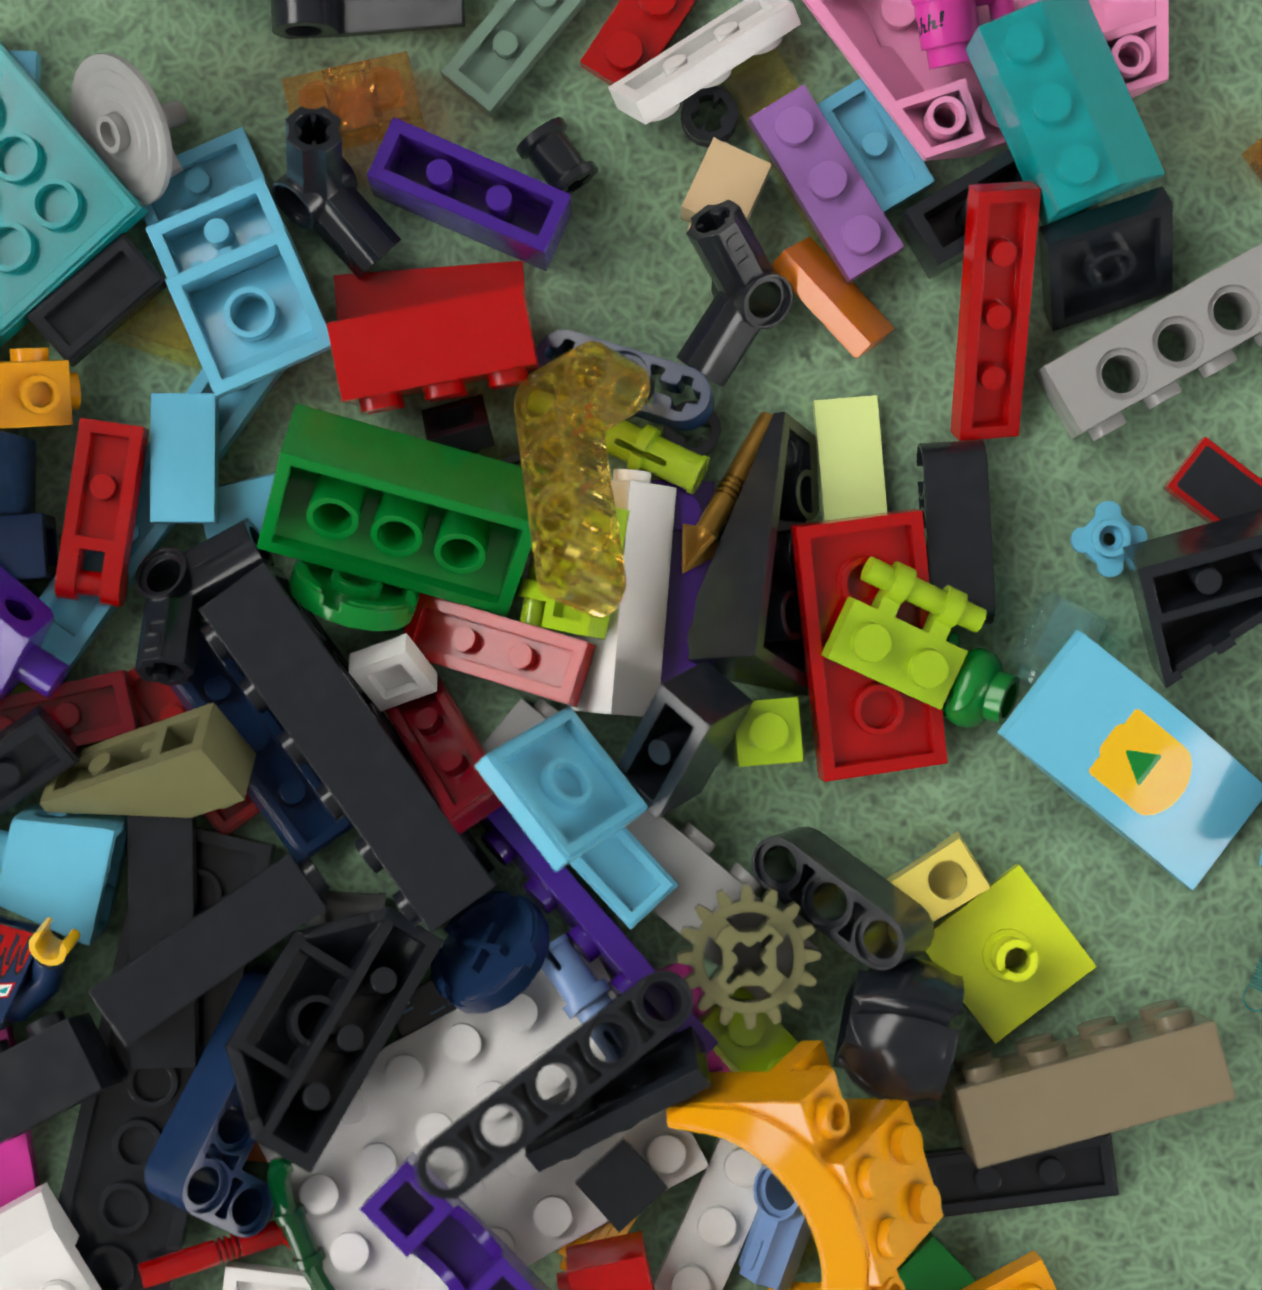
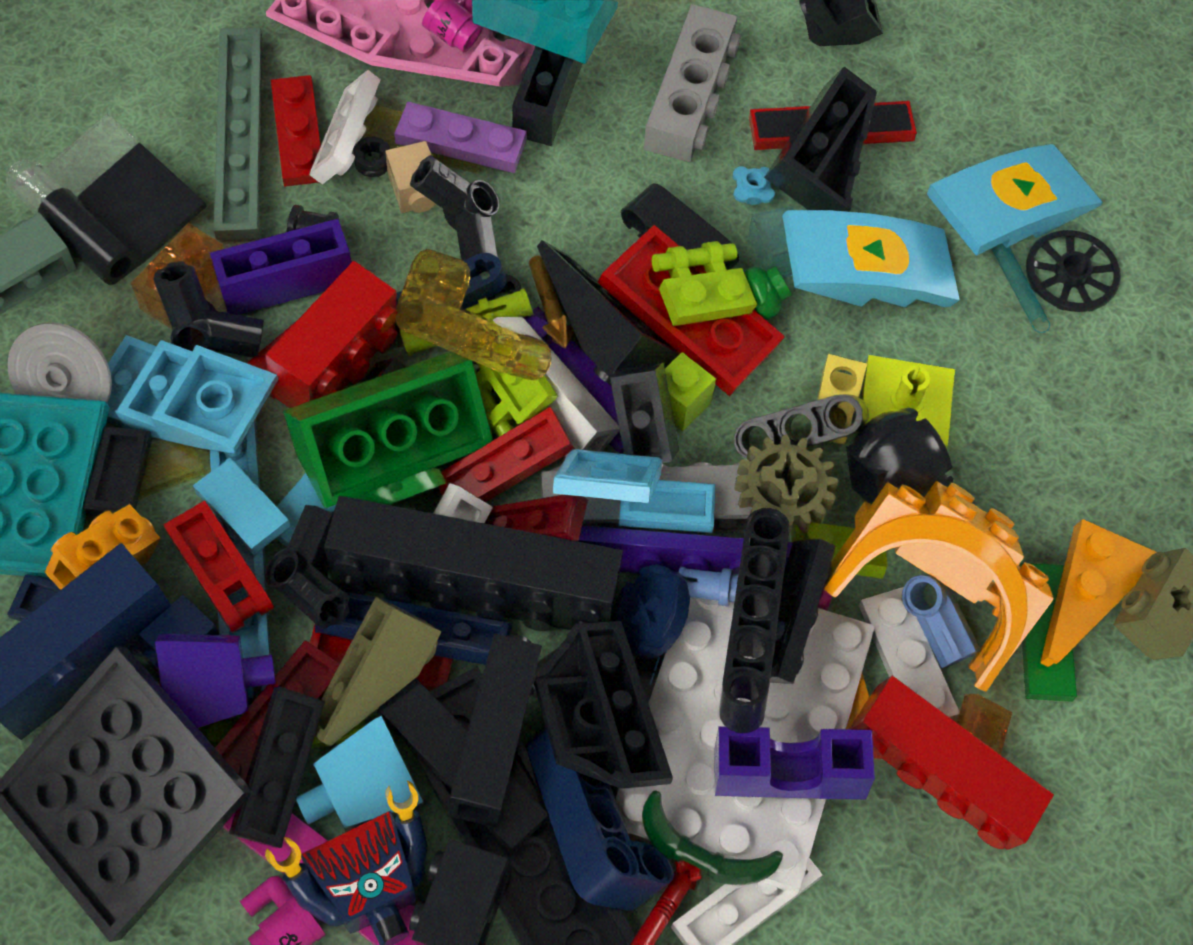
camera: 50 degrees left, 25 degrees down
(621, 1184) = (841, 665): black tile -> none
(829, 297) = (516, 182): orange tile -> none
(849, 457) = (587, 243): yellowish green tile -> none
(876, 146) = (469, 102): medium azure plate -> none
(994, 309) = (598, 117): red plate -> none
(1046, 1177) = (1036, 487): black tile -> none
(1087, 1082) = (1010, 407): dark tan brick -> none
(1107, 258) = (626, 64): black tile -> none

